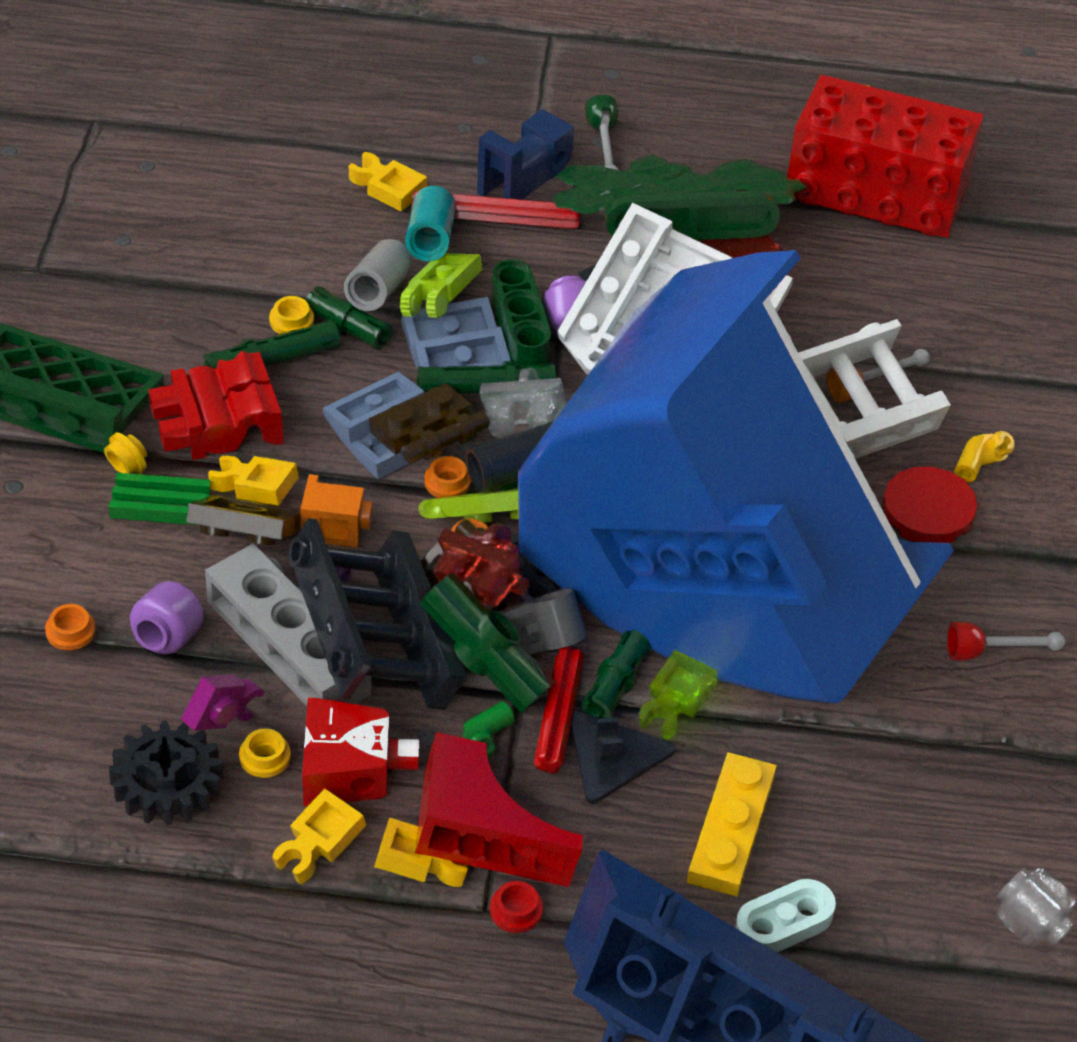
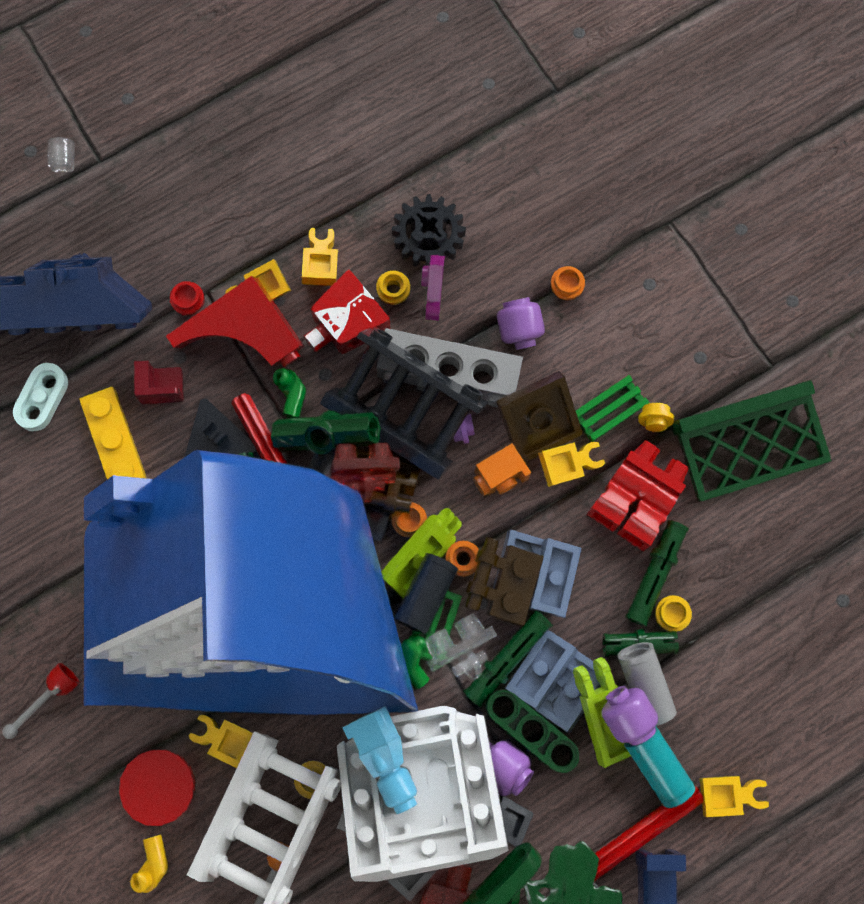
camera: 140 degrees right, 30 degrees up
(423, 247) = (630, 715): none -> medium lavender head
(634, 832) = (157, 384): none -> dark red panel

